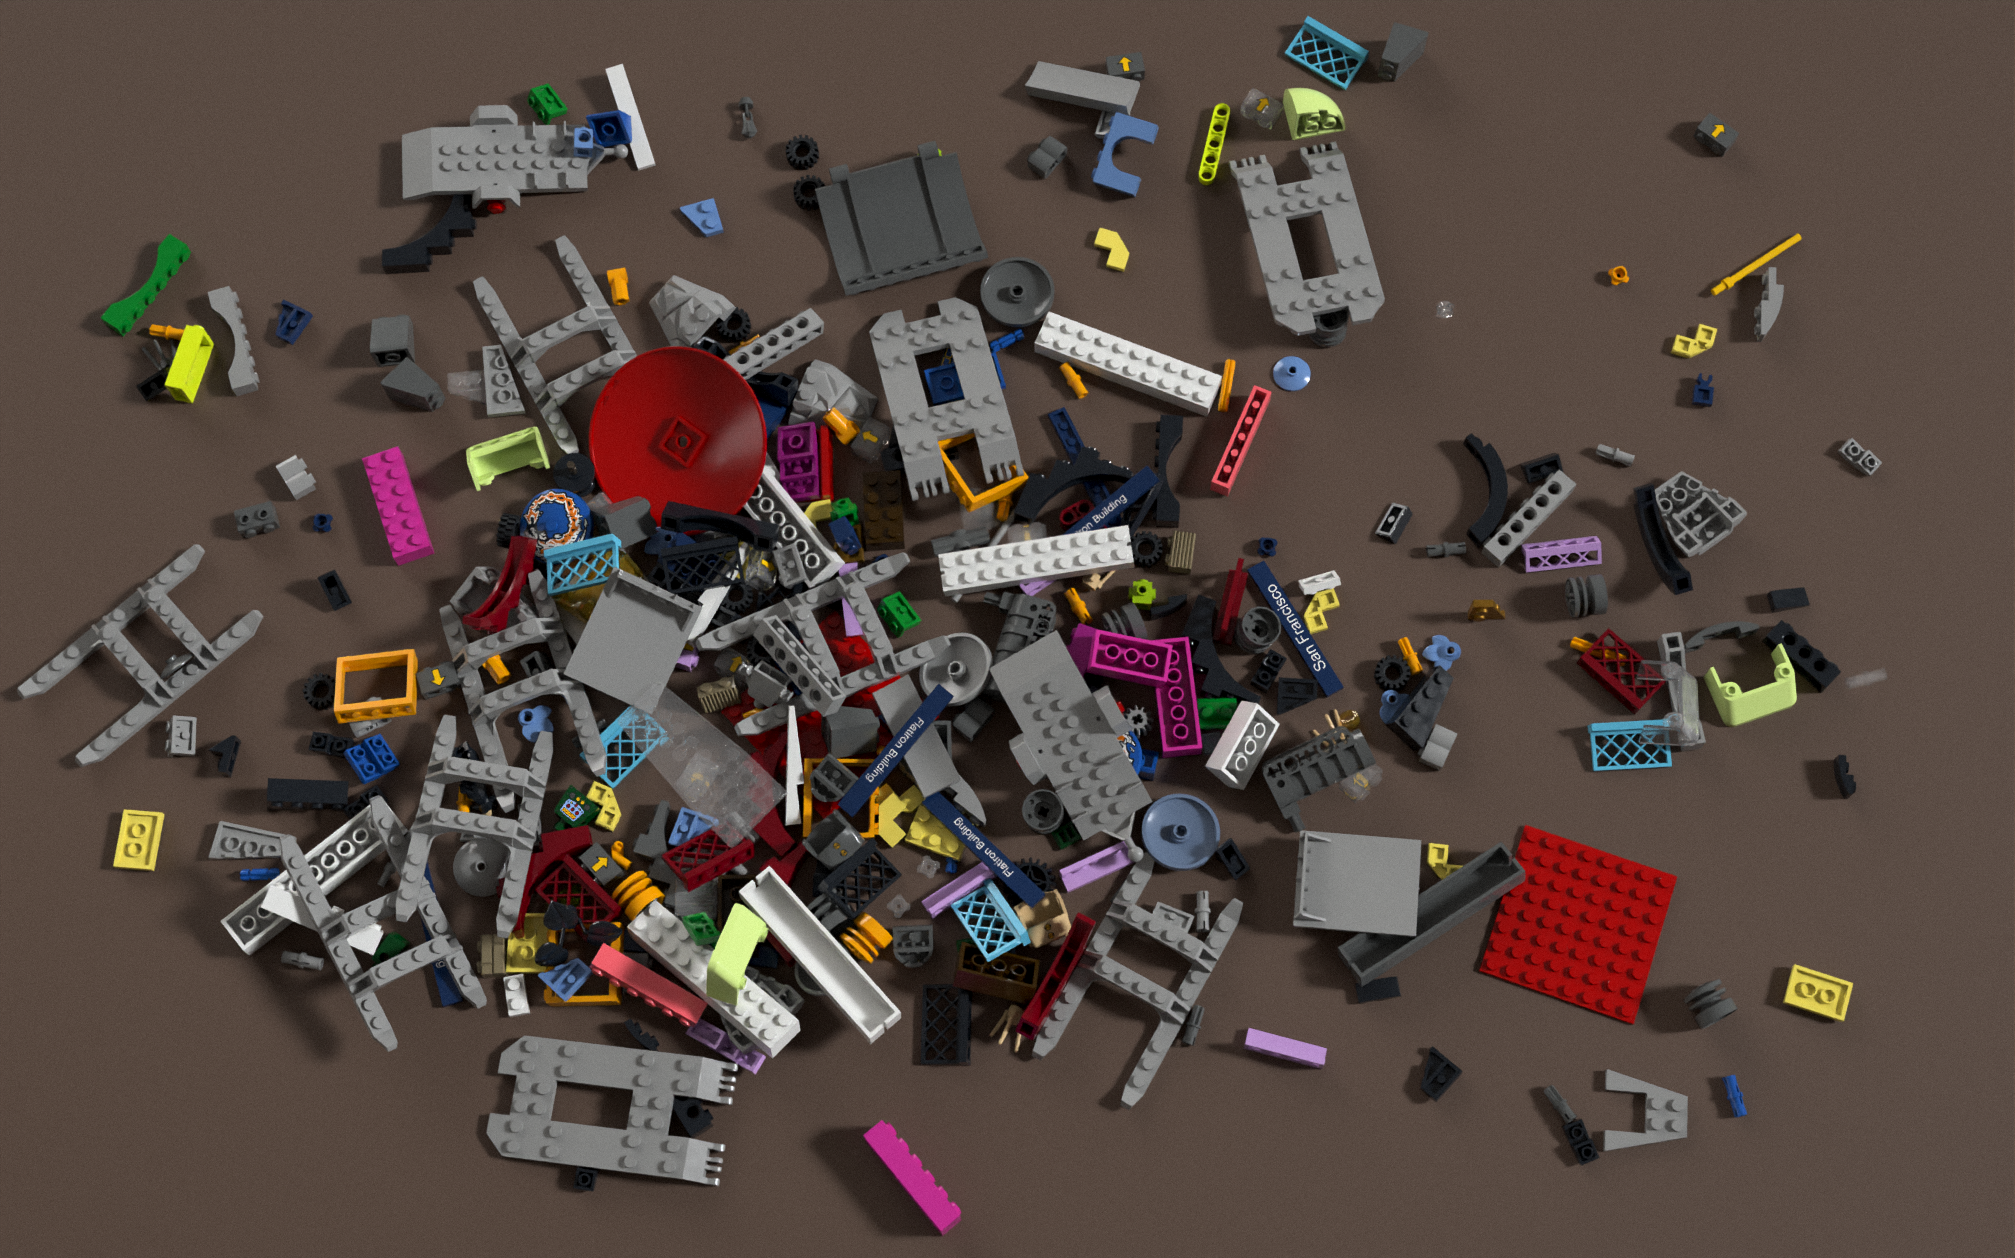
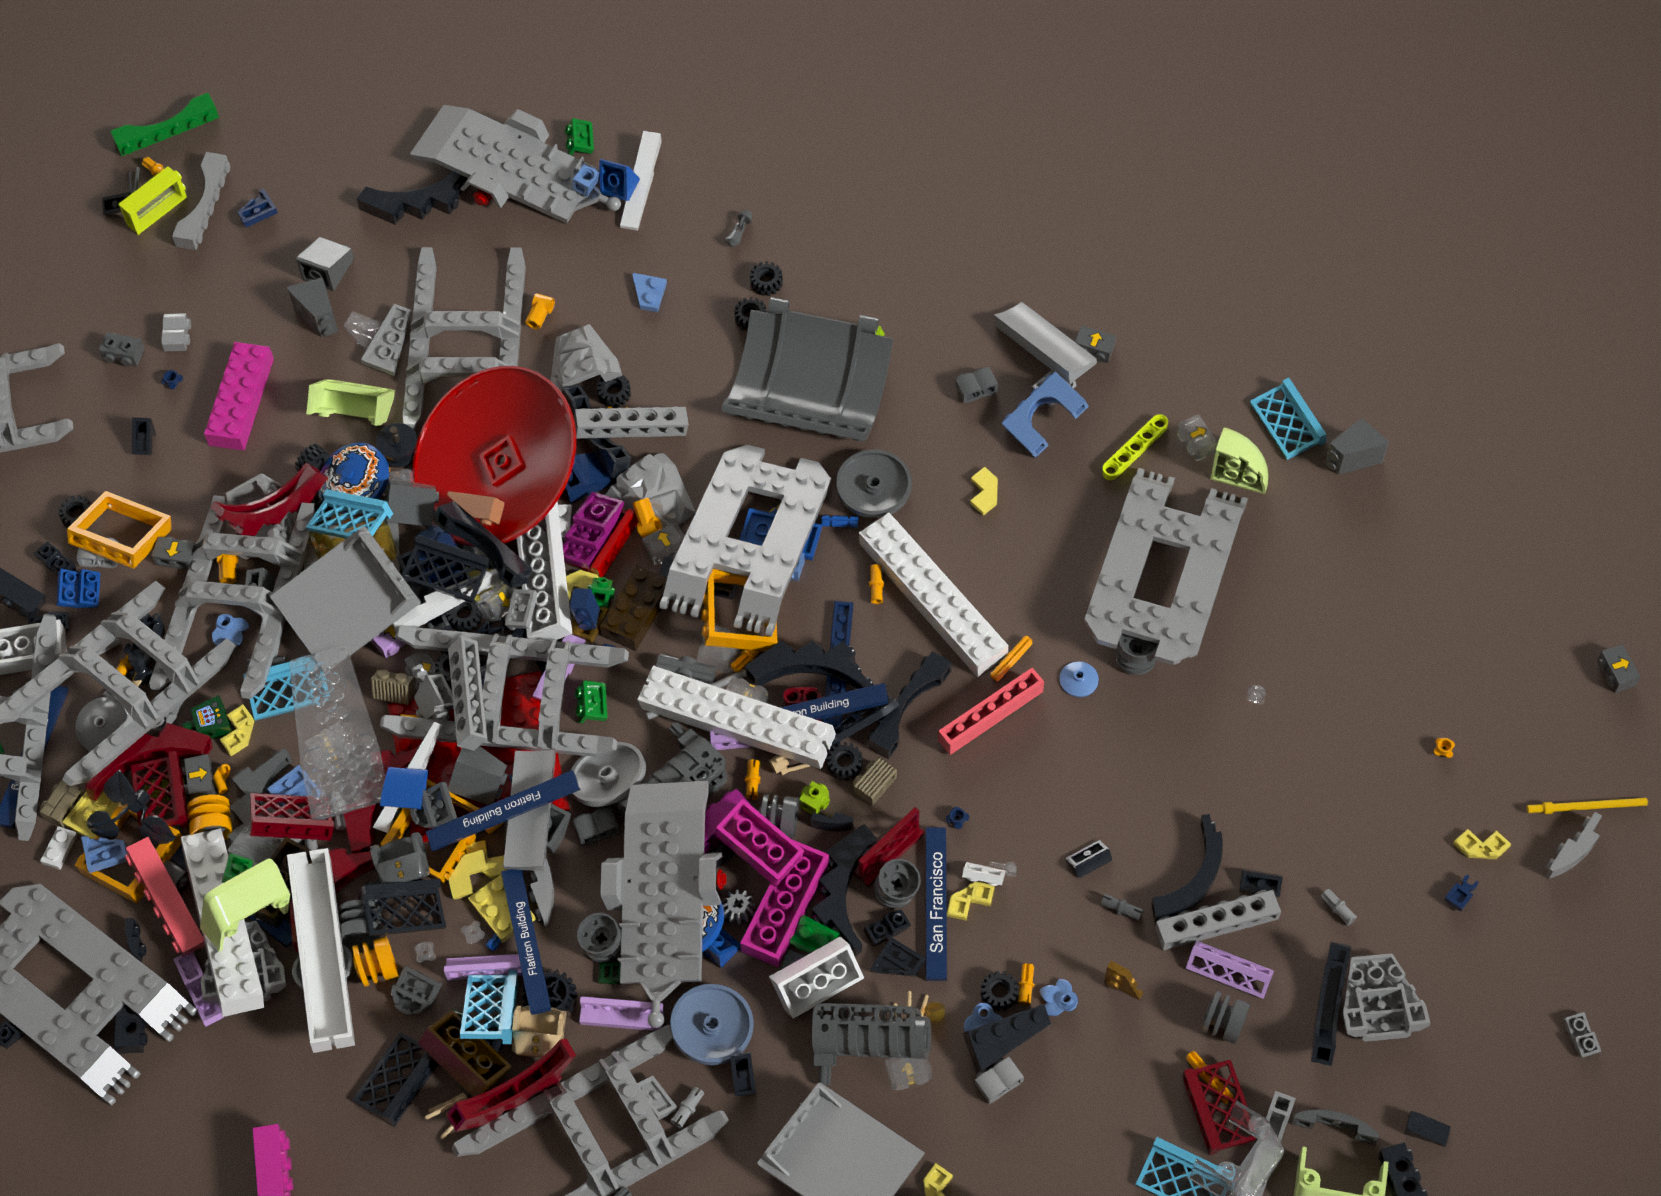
camera: 30 degrees right, 10 degrees down
(697, 494) = (483, 508): none -> nougat slope
(797, 777) = (404, 788): none -> blue slope
(1336, 565) = (1010, 867): none -> clear hand

